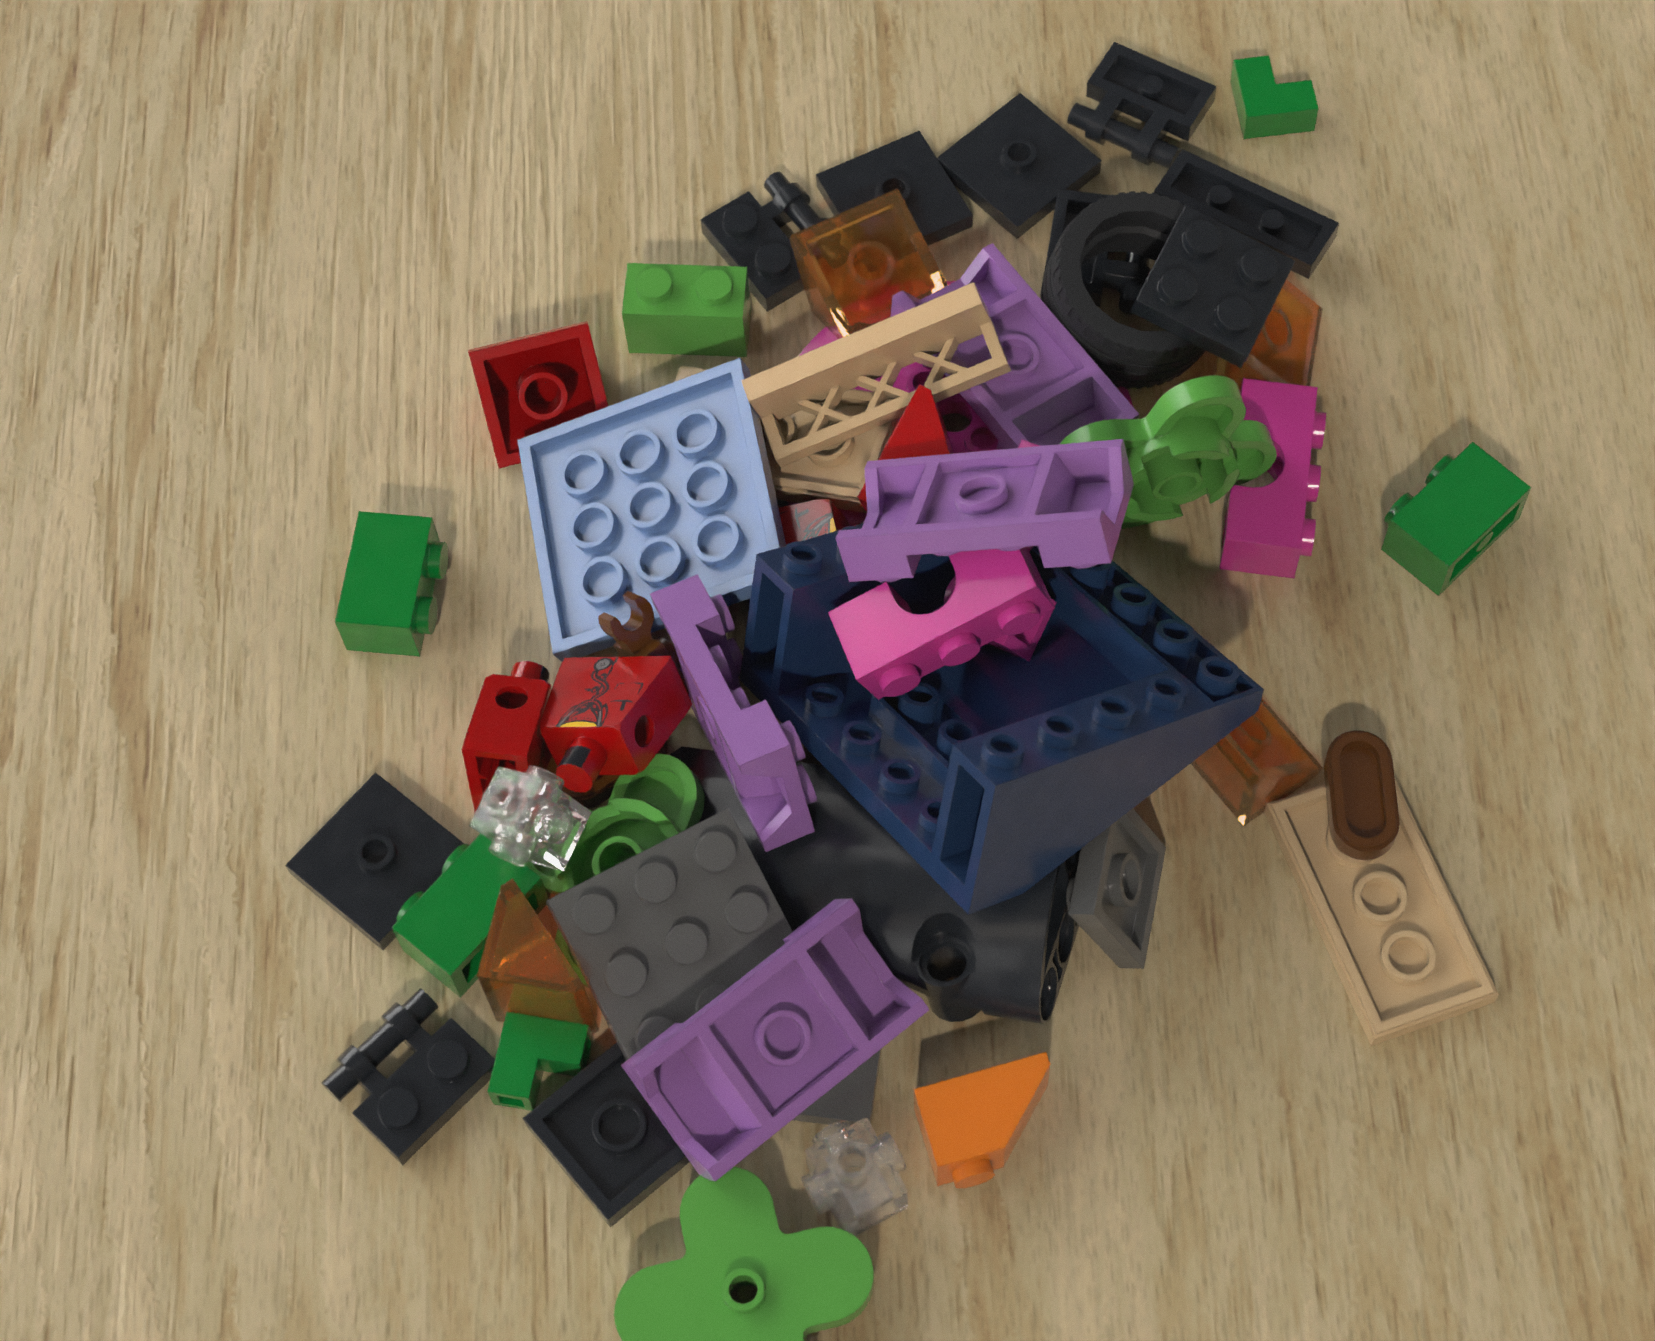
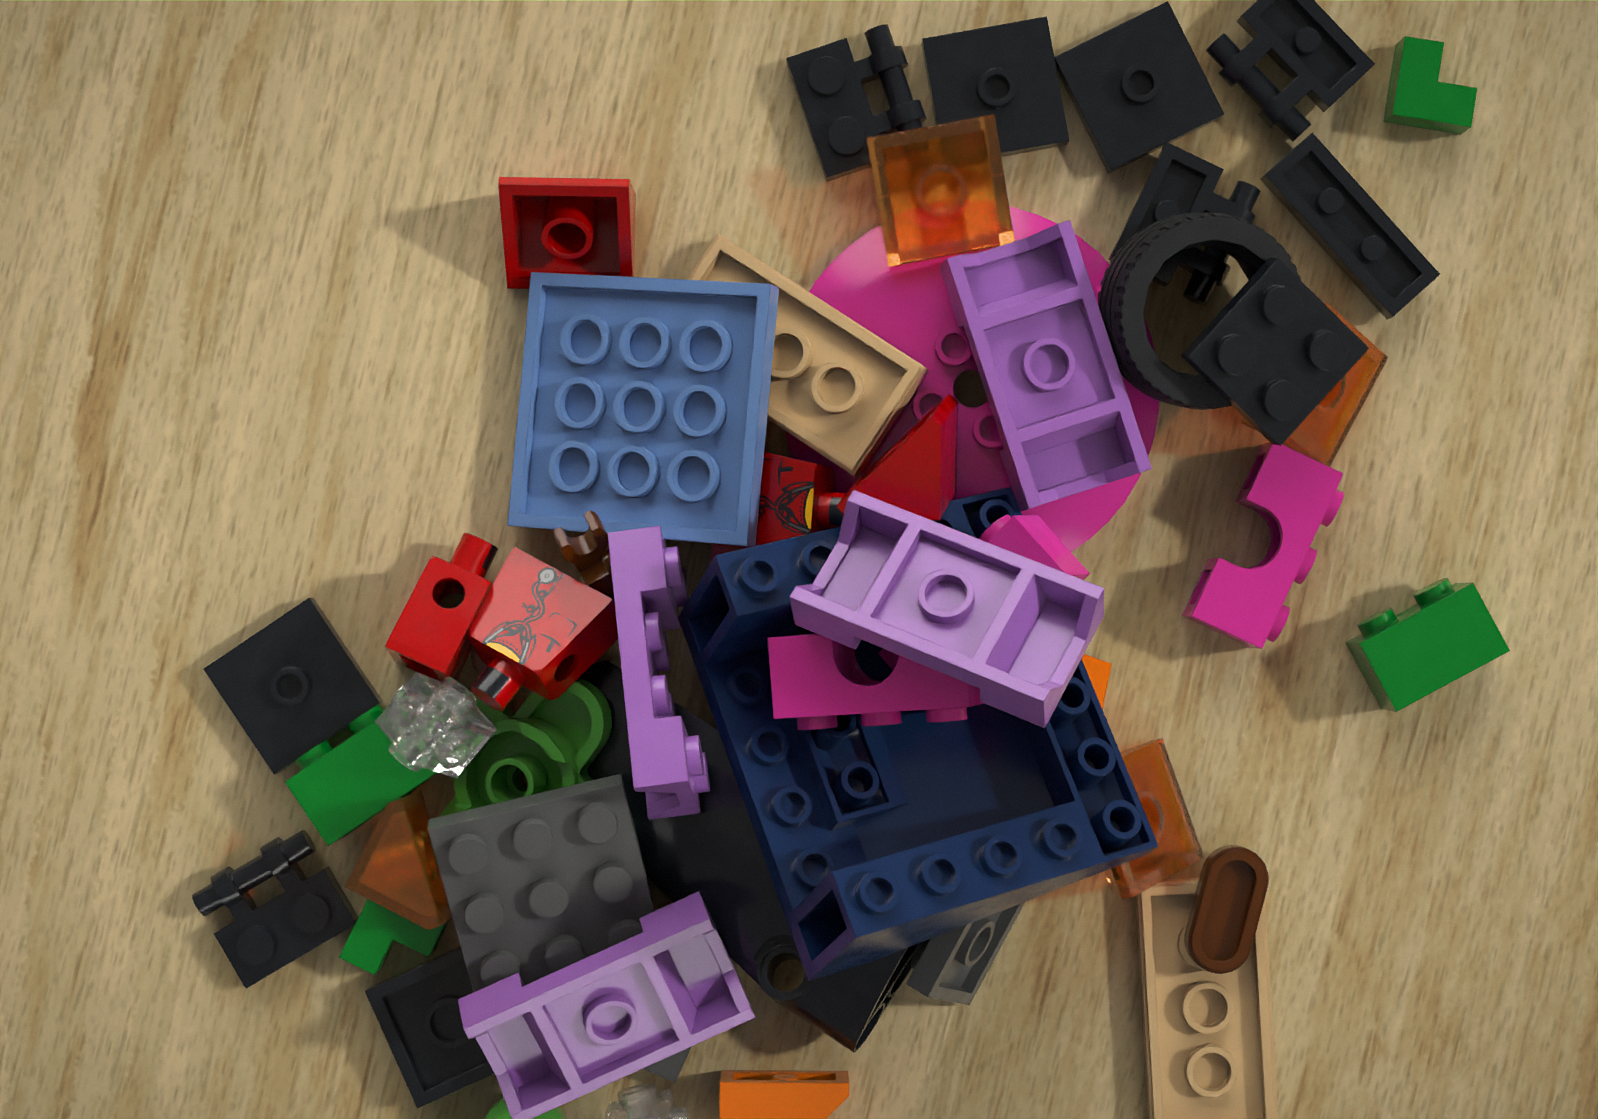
camera: 10 degrees right, 25 degrees up
(391, 584) = (368, 399): green brick -> none
(687, 309) = (741, 171): bright green brick -> none
(873, 354) = (898, 329): tan fence -> none
(1186, 448) = (1162, 534): bright green plant -> none

